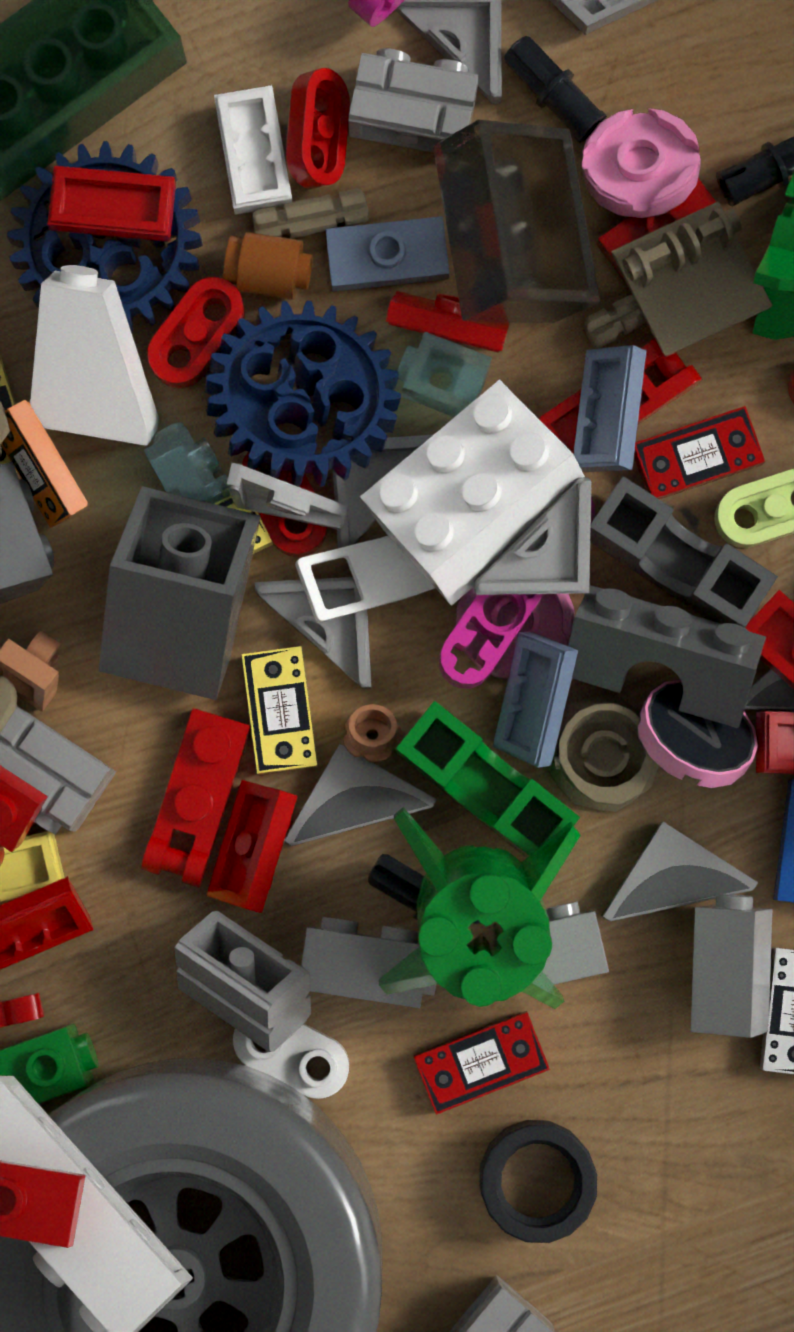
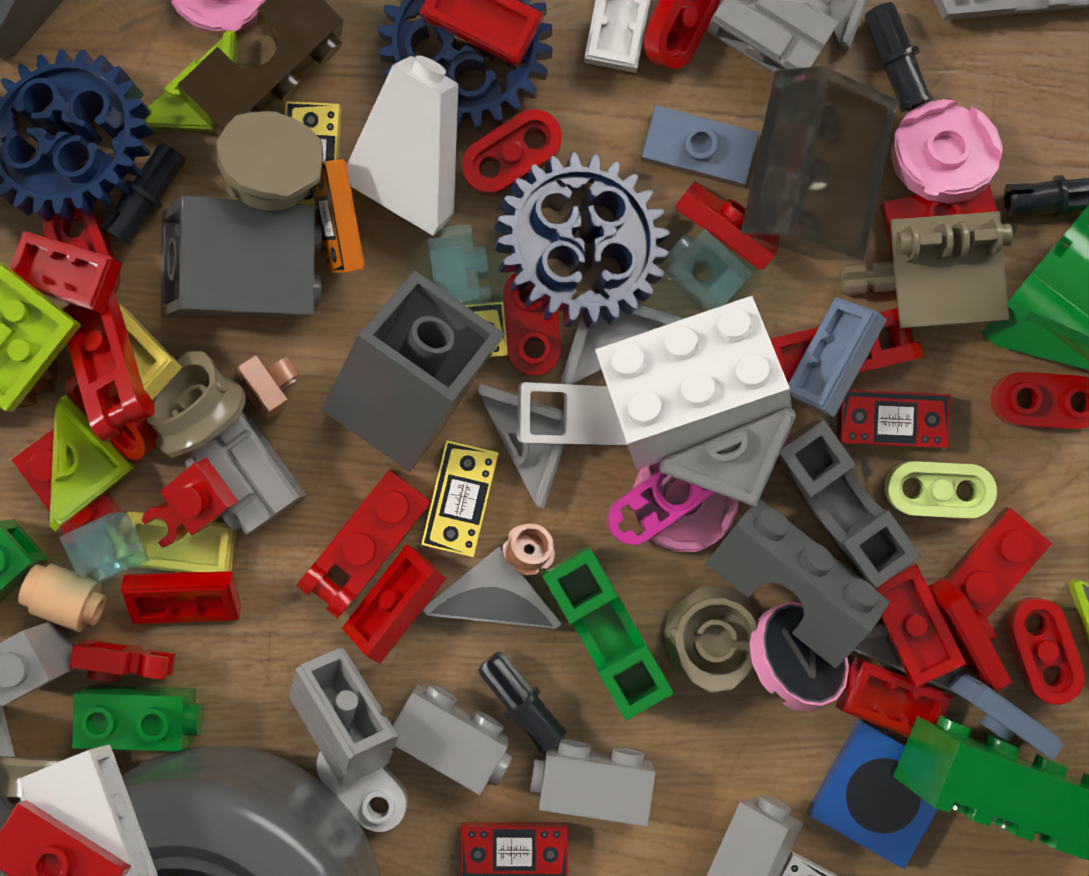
camera: 20 degrees right, 5 degrees up
(267, 265) = (594, 118): dark orange brick -> none
(274, 497) = (530, 328): light grey tile -> none
(312, 215) = (647, 89): dark tan axle -> none
(486, 885) = (556, 755): green brick -> none
(535, 698) = (675, 574): sand blue plate -> none
(674, 874) = (732, 761): tile -> none

